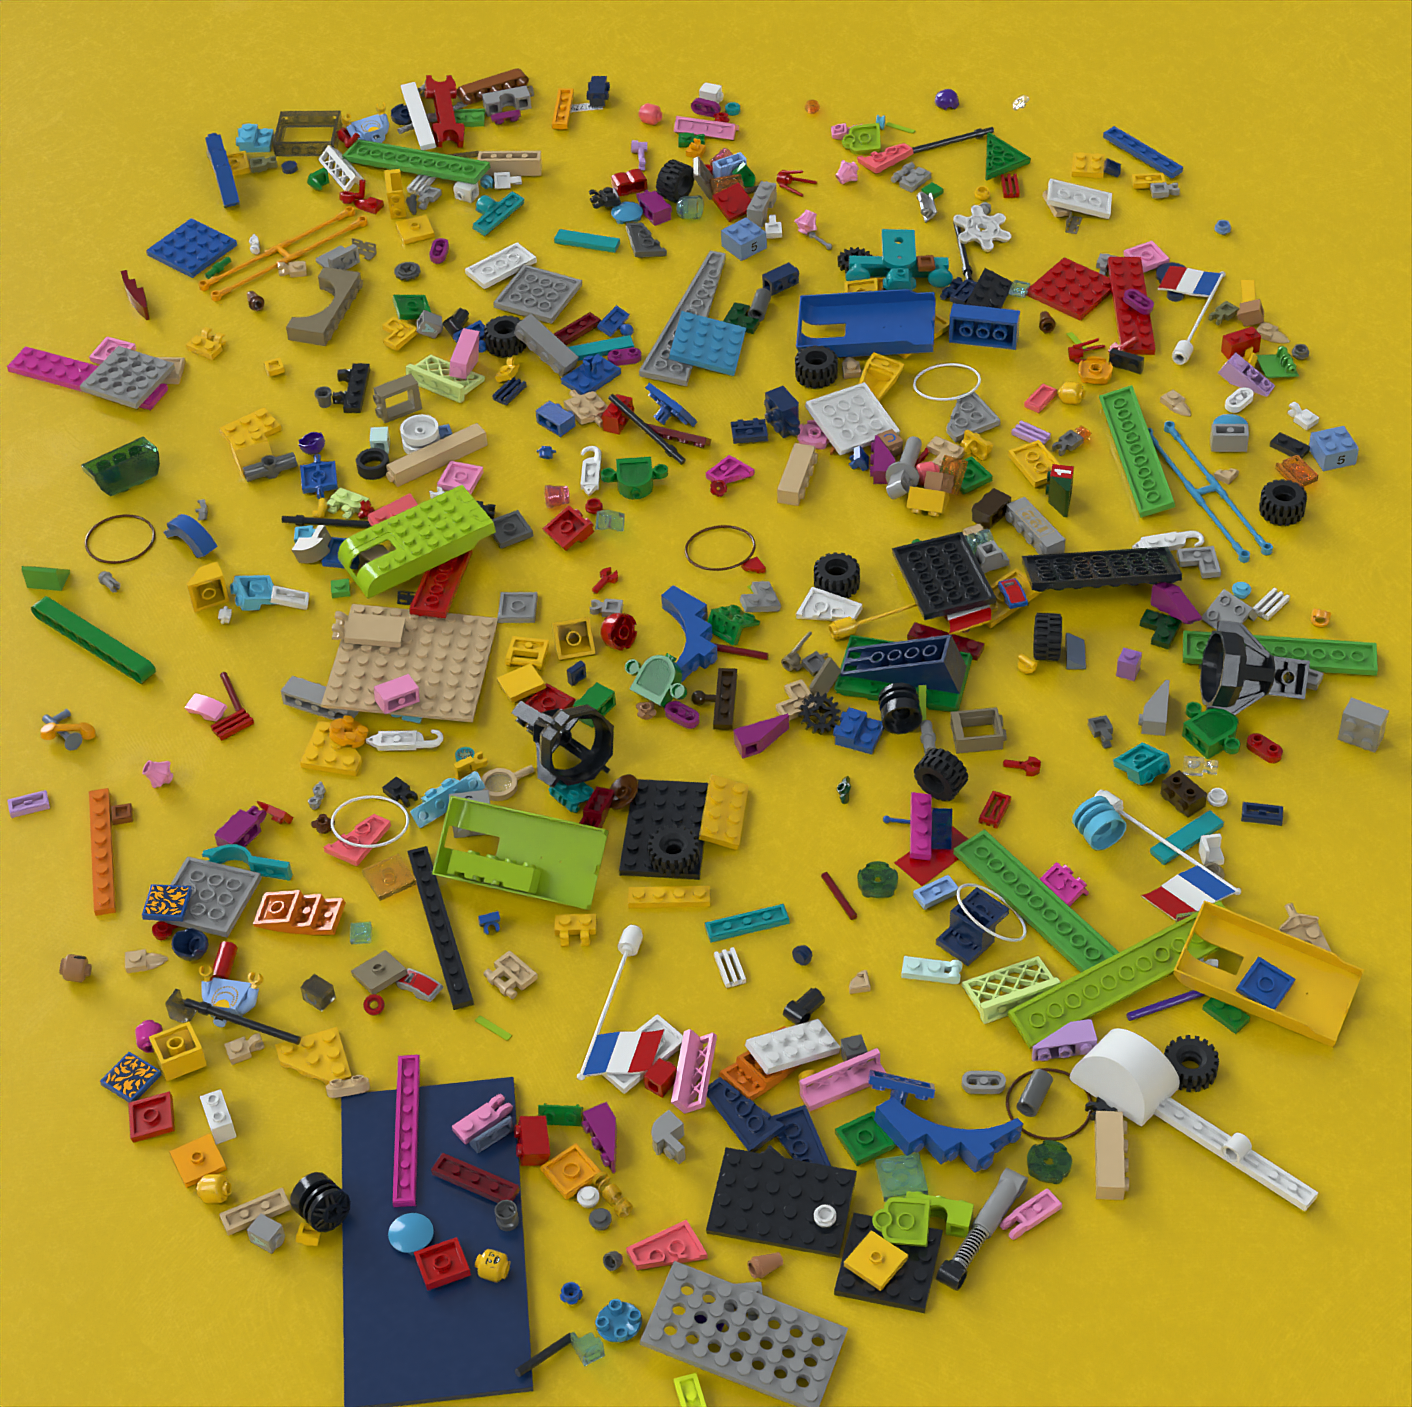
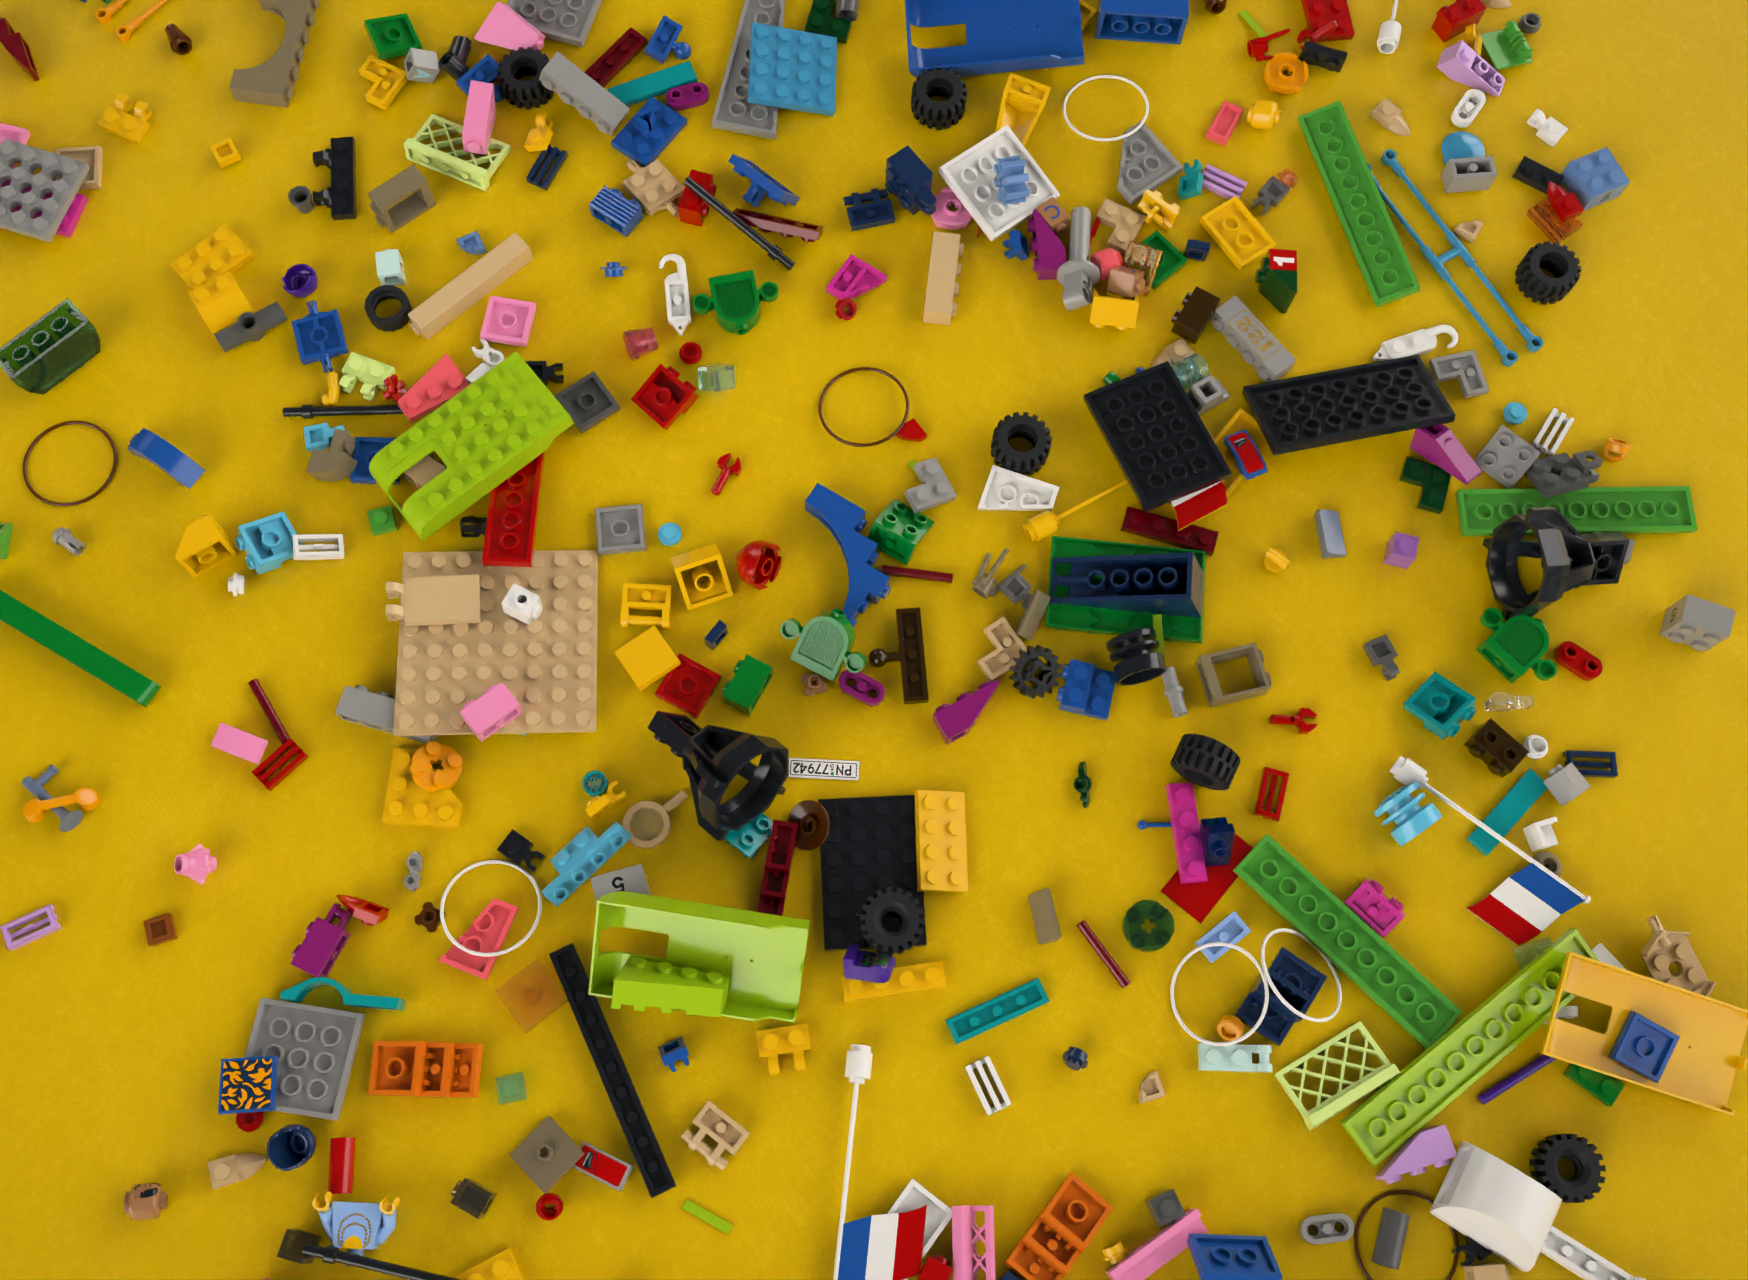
camera: 15 degrees left, 25 degrees up
(102, 852) = (145, 996): orange plate -> none
(203, 510) = (174, 406): light grey piece -> none
(403, 740) = (511, 769): white plate -> none
(419, 432) = (442, 256): white wheel -> none
(433, 636) = (522, 604): none -> white brick
(496, 304) = (509, 30): none -> bright pink slope
(554, 612) = (669, 534): none -> medium azure plate
(607, 607) = (741, 521): light grey plate -> none
(642, 764) = (824, 769): none -> white sticker
(649, 879) = (867, 965): none -> dark purple leg
(792, 1046) = (1089, 1212): white plate -> none
(796, 867) = (1044, 916): none -> dark tan slope
(801, 1010) = (1087, 1147): black piece -> none
(851, 368) = (980, 92): tan plate -> none
(858, 411) = (1011, 180): none -> medium blue gear
(930, 948) = (1230, 1028): none -> light orange tile
(941, 938) = (1265, 987): none -> white piece
(1001, 470) = (1196, 250): none -> dark blue tile
(1006, 430) = (1191, 183): none -> teal plate
(1047, 636) = (1301, 524): black tyre -> none
(1155, 712) = (1444, 627): light grey slope -> none
(1236, 819) = (1566, 783): none -> light grey brick
(1274, 625) = (1572, 473): none -> dark grey plate
(1304, 460) = (1564, 203): none -> red plate

